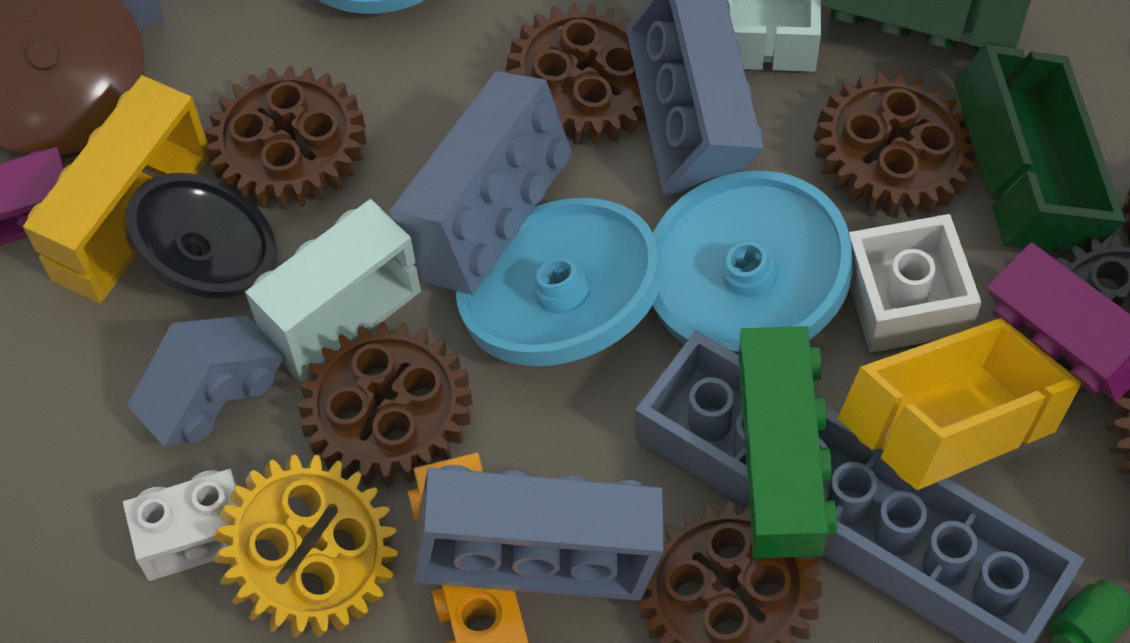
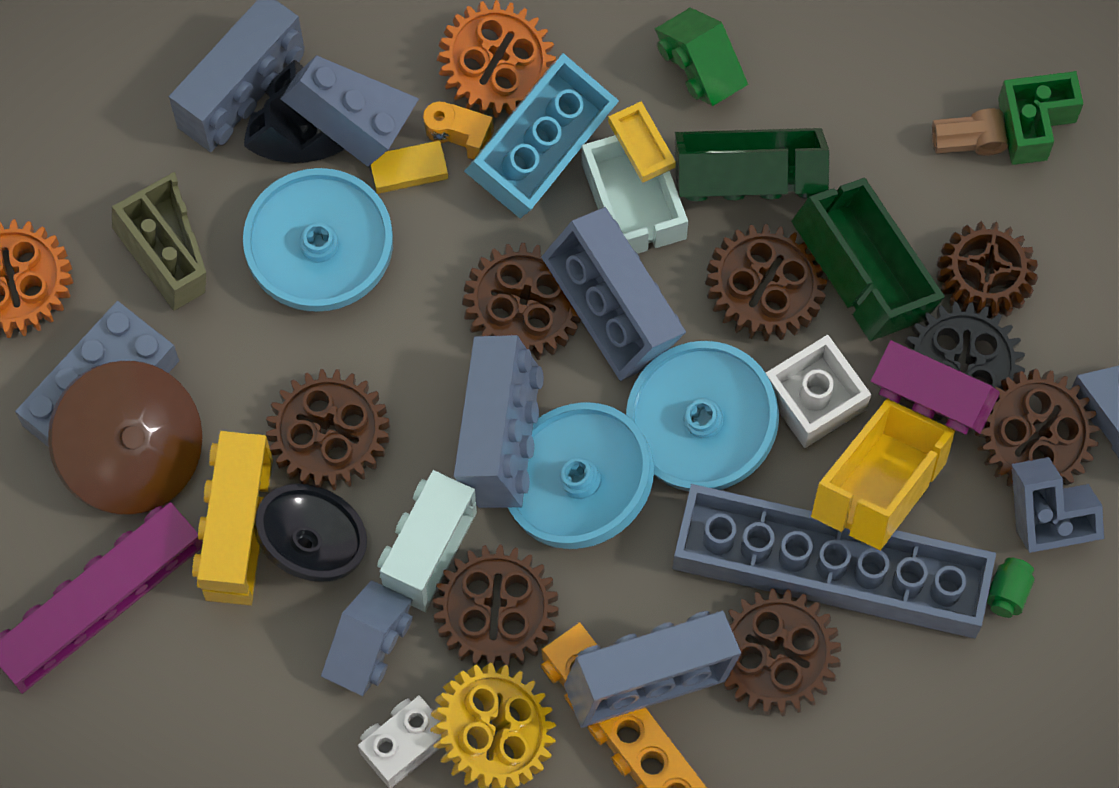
camera: 25 degrees left, 10 degrees up
(783, 443) = (782, 545): green brick -> none

